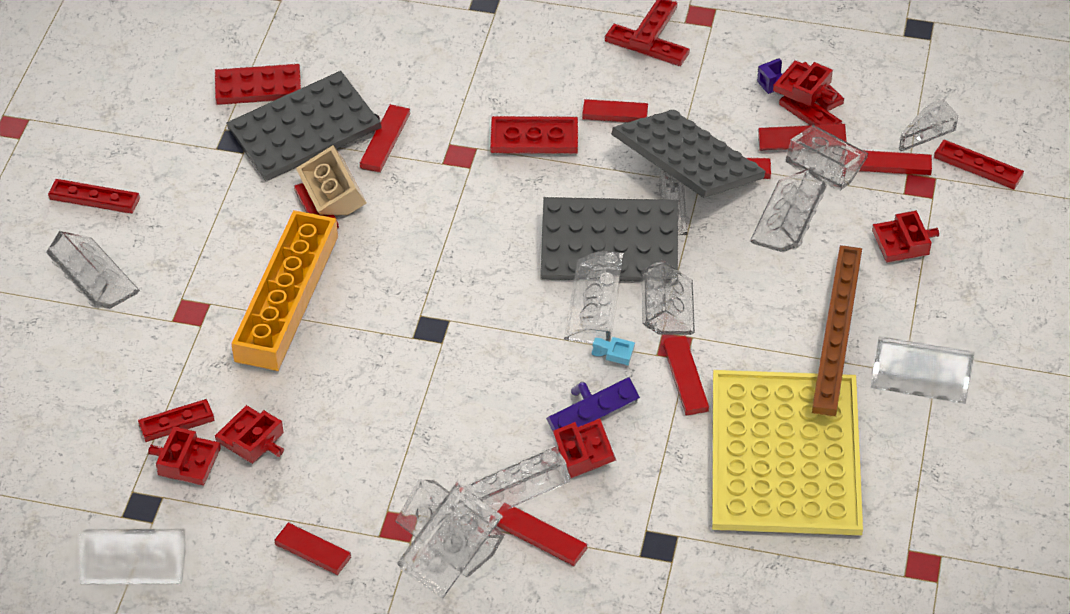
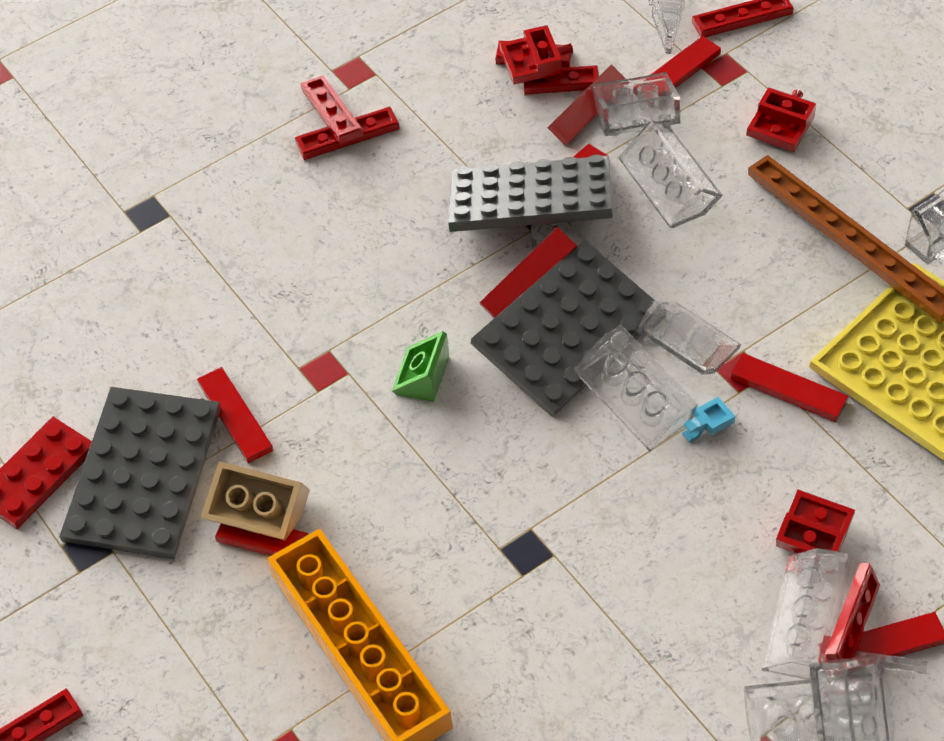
camera: 45 degrees left, 5 degrees up
(507, 198) = (423, 368): none -> bright green slope
(527, 549) = (904, 666): none -> clear plate
(534, 134) = (368, 293): red plate -> none
(536, 500) = (854, 614): none -> red tile
(595, 405) = (765, 487): dark purple plate -> none
(613, 110) = (404, 212): red tile -> none
(647, 189) = (529, 271): none -> red tile
(768, 74) = (491, 77): dark purple panel -> none

